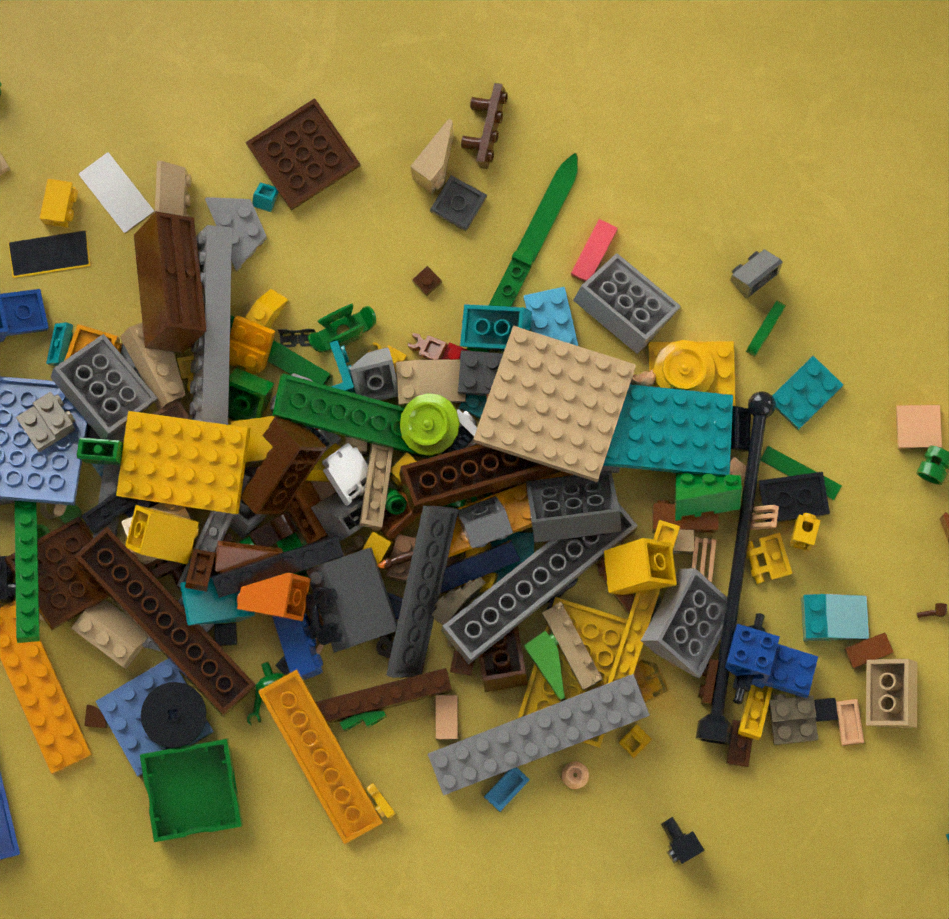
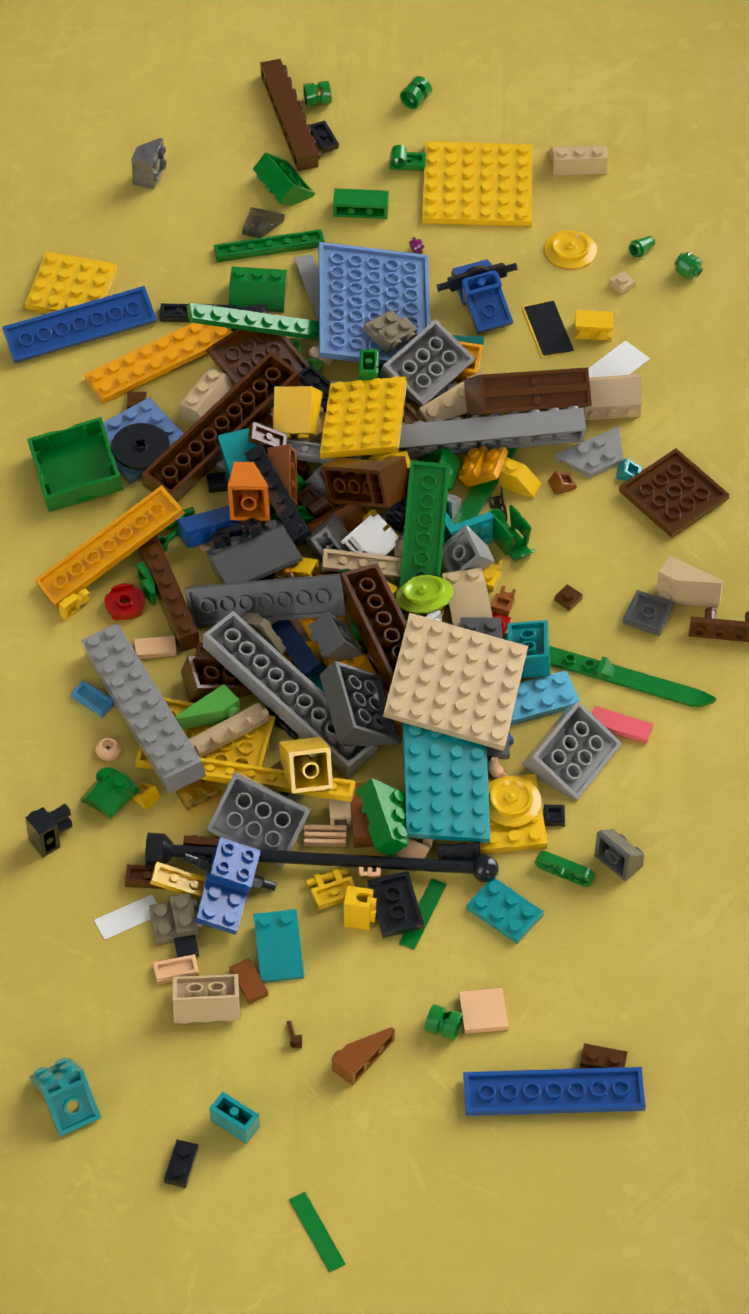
camera: 75 degrees right, 25 degrees down
(272, 267) = (561, 482): none -> dark orange slope
(391, 736) = (127, 611): none -> red plate
(634, 777) = (110, 791): none -> green slope
(697, 330) = (554, 815): none -> black tile
(781, 768) = (125, 917): none -> white sticker

